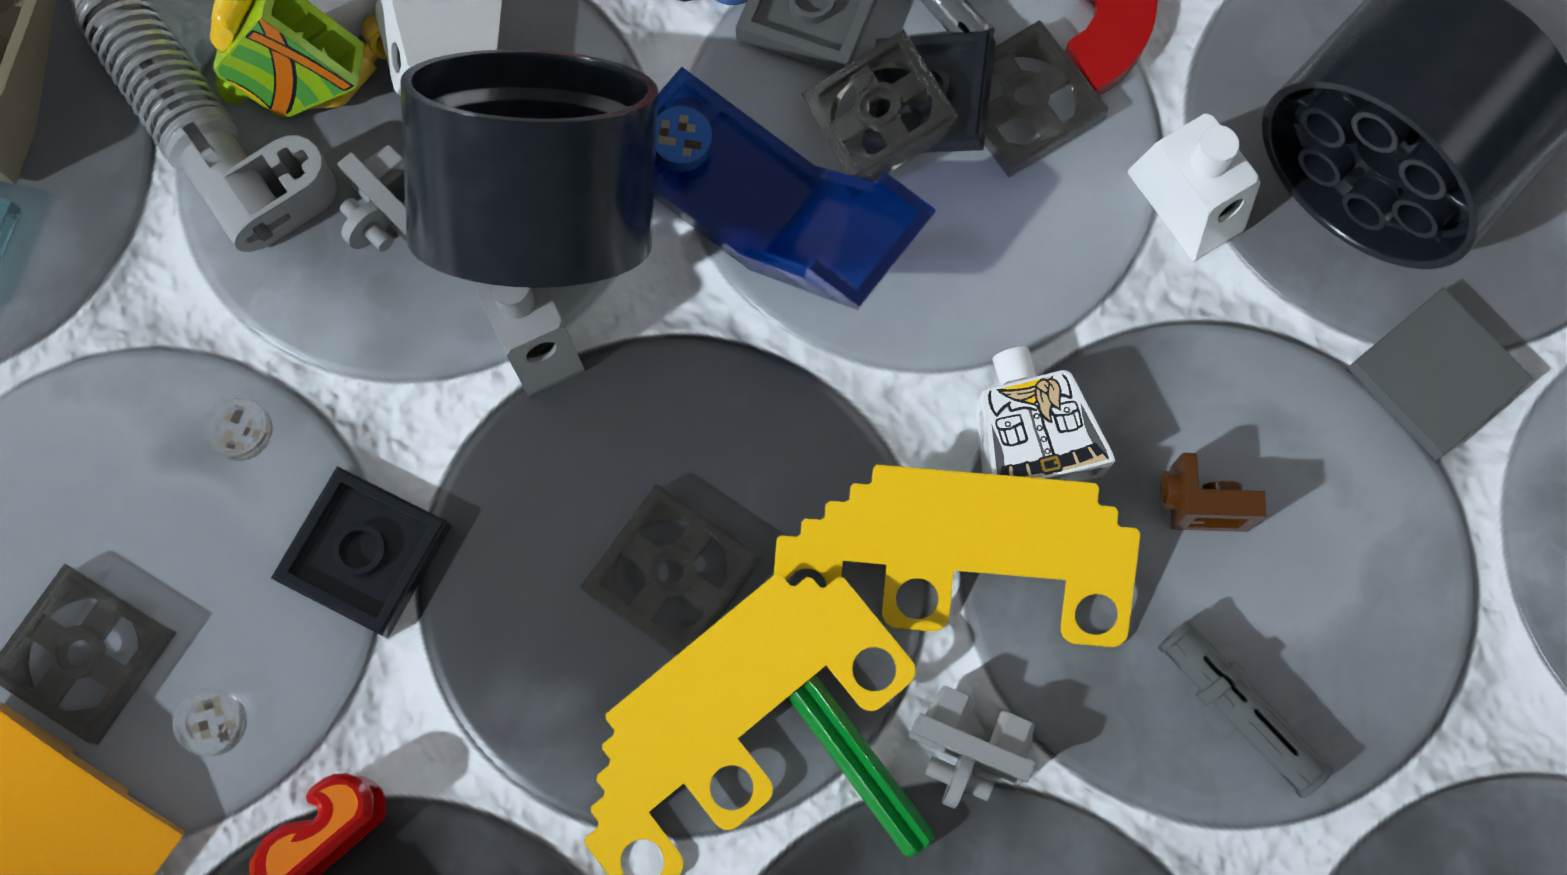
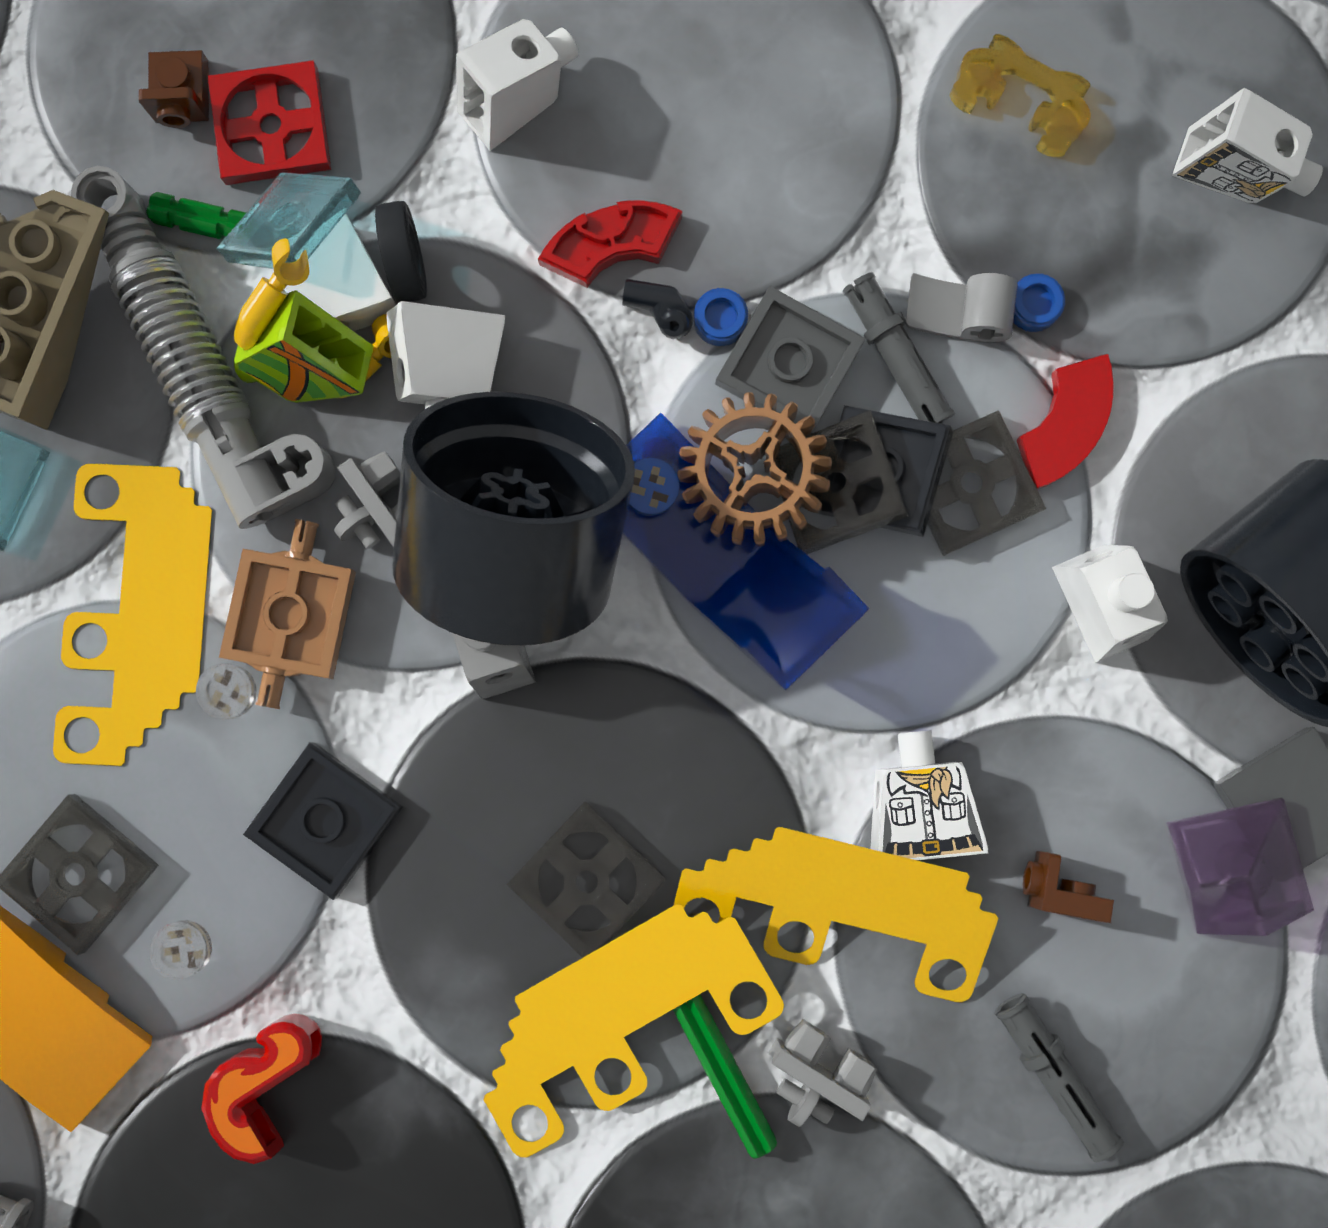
camera: 10 degrees right, 10 degrees up
(157, 366) = (161, 613): none -> yellow piece
(298, 332) = (287, 614): none -> medium nougat plate
(774, 72) = (780, 427): none -> medium nougat gear
(1396, 444) = (1241, 869): none -> clear purple slope

